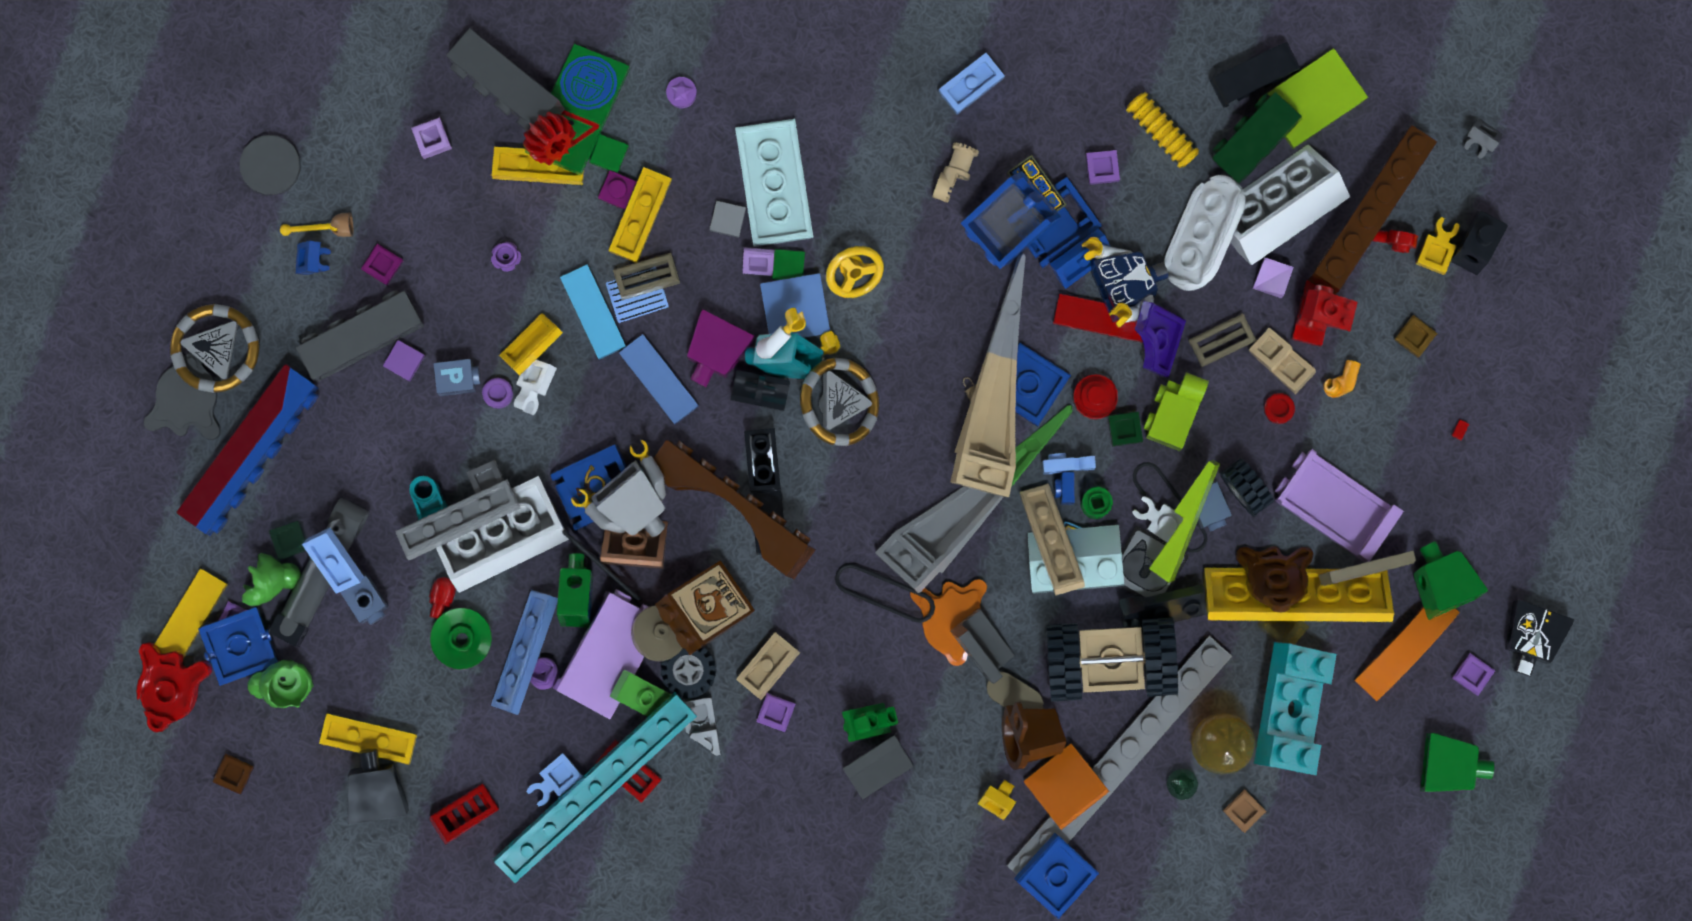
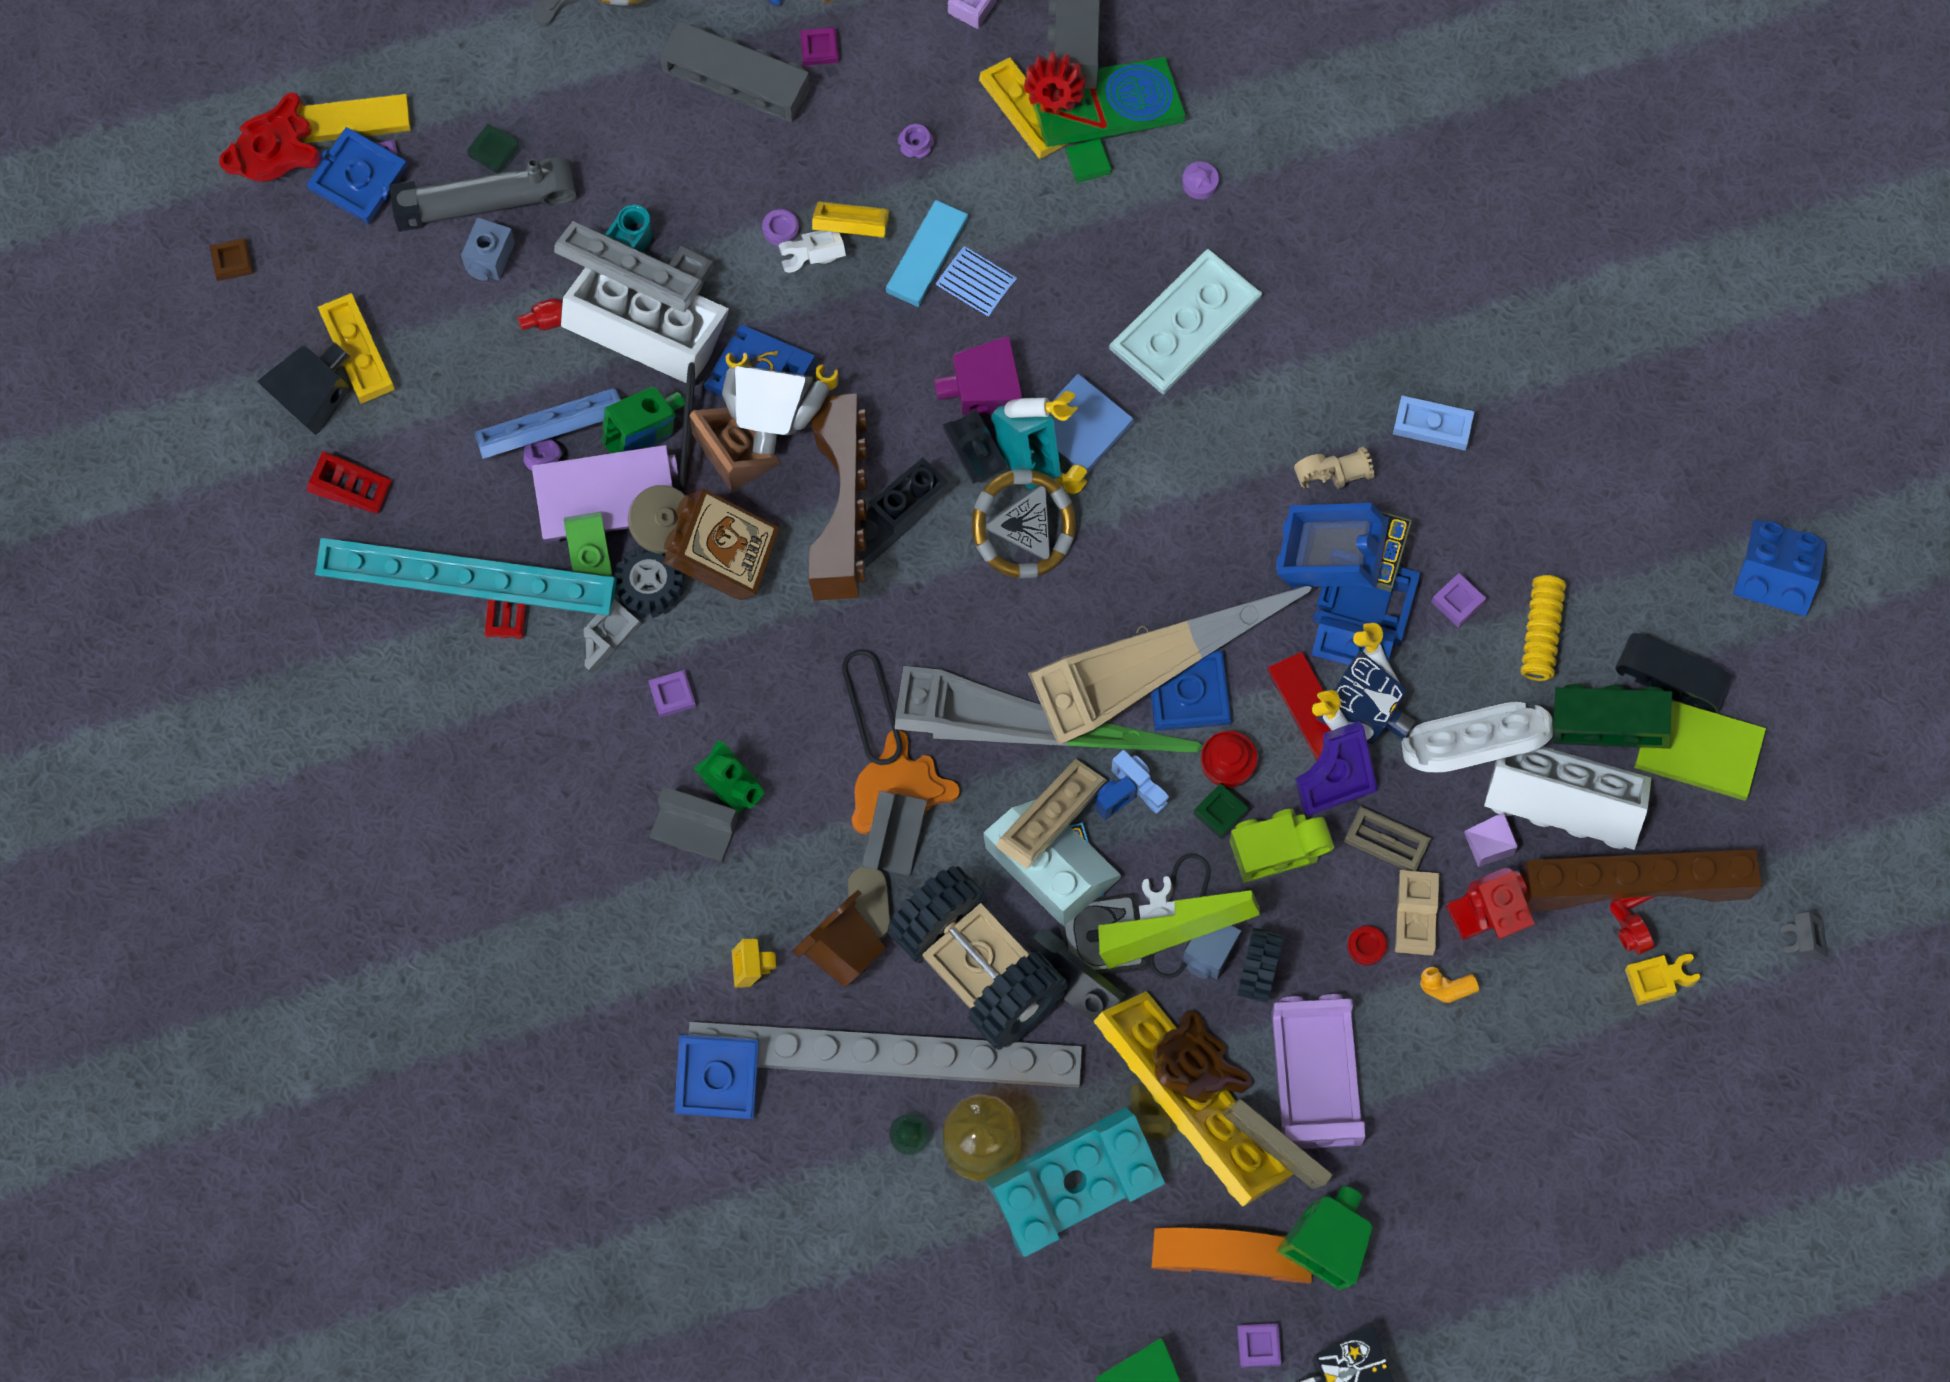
camera: 55 degrees right, 15 degrees down
(248, 450) = (549, 54): brick -> none
(269, 580) = (439, 153): bright green piece -> none
(279, 692) = (338, 236): bright green piece -> none
(333, 560) = (501, 186): light blue plate -> none
(404, 360) = (744, 127): medium lavender tile -> none
(447, 629) = (514, 343): green dish -> none
(456, 377) = (764, 177): sand blue brick -> none
(558, 777) = (448, 539): light blue plate -> none
(617, 190) = (1060, 192): magenta plate -> none
(640, 215) = (1053, 226): yellow plate -> none
(649, 287) = (995, 277): dark tan tile -> none
(658, 379) = (910, 355): medium blue tile -> none
(727, 219) = (1115, 305): light grey tile -> none
(758, 261) = (1099, 359): lavender slope -> none
(768, 666) = (711, 650): tan plate -> none
(788, 264) = (1119, 388): green tile -> none
(853, 269) = (1169, 431): yellow piece -> none
(1066, 786) = (815, 1017): orange tile -> none
(1092, 506) = (1124, 845): green wheel -> none
(1244, 811) = (931, 1217): medium nougat tile -> none
(1415, 336) = (1552, 1024): pearl gold tile -> none
(1460, 430) = (1497, 1141): red piece -> none
(1479, 241) = (1702, 1006): black torso -> none

